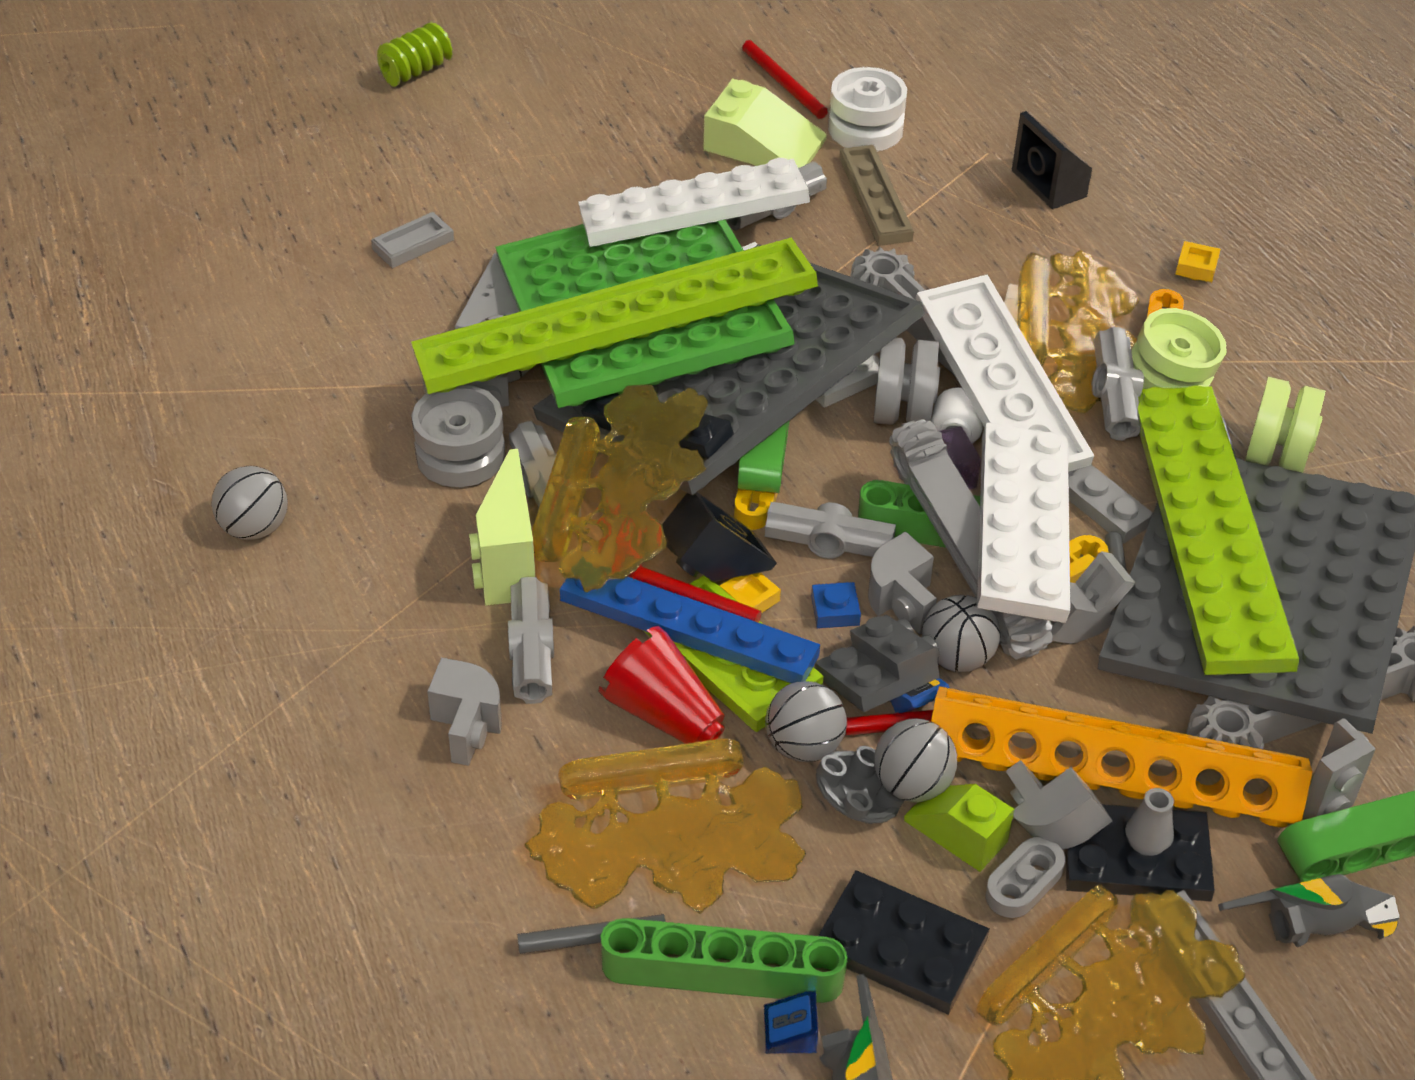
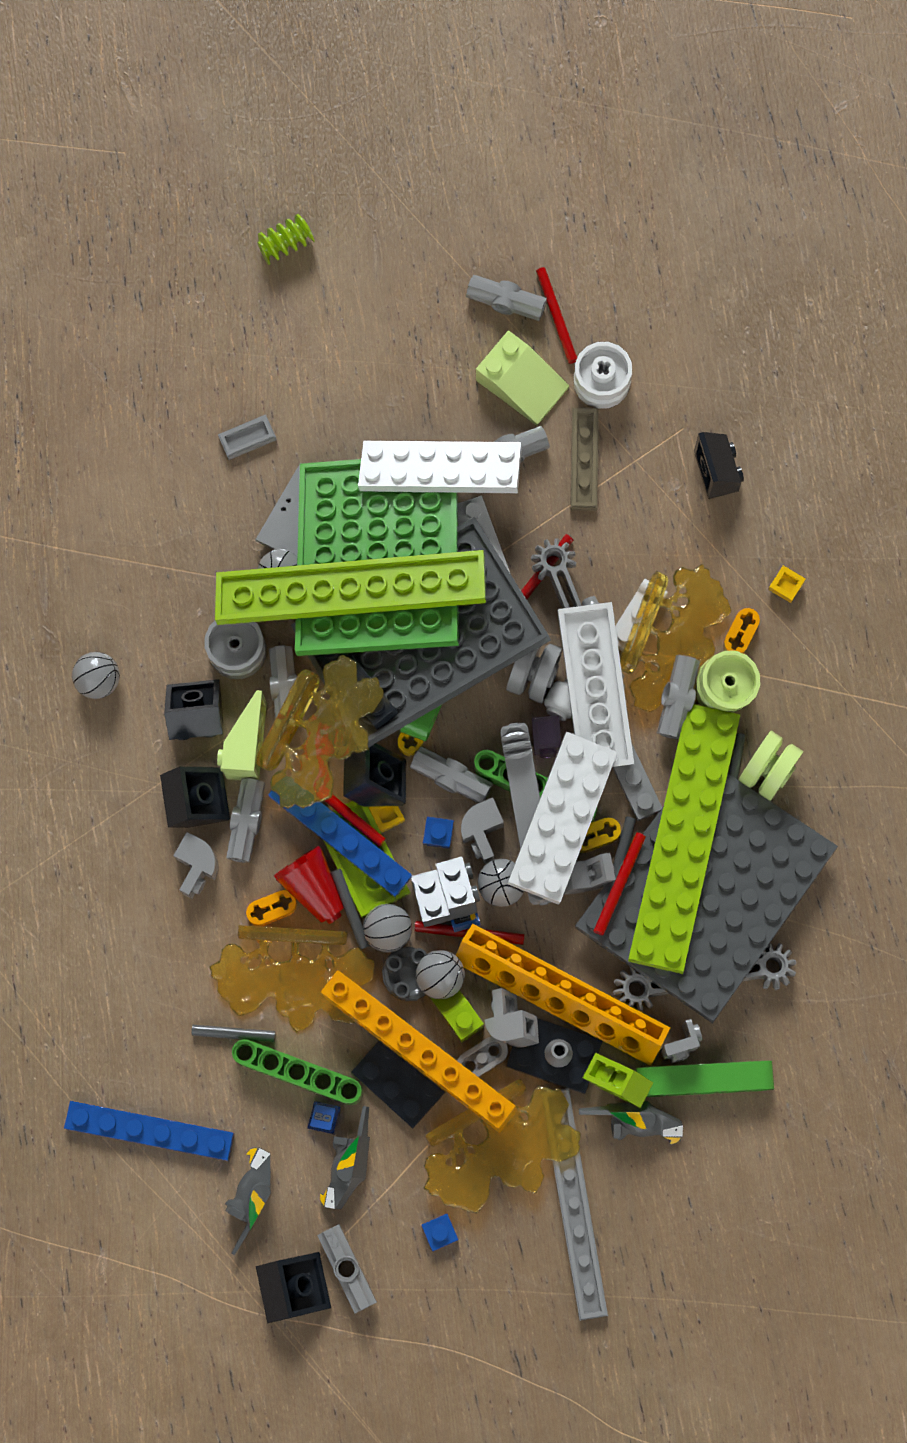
camera: 20 degrees right, 30 degrees up
(415, 524) = (193, 709): none -> black slope
(437, 621) = (194, 796): none -> black slope
(602, 738) = (268, 902): none -> light orange beam
(699, 67) = (506, 297): none -> light grey piece
(736, 717) = (349, 908): none -> dark grey bar
(929, 866) = (419, 1051): none -> light orange brick
(1143, 591) = (619, 884): none -> red bar
(1264, 843) = (618, 1080): none -> lime brick

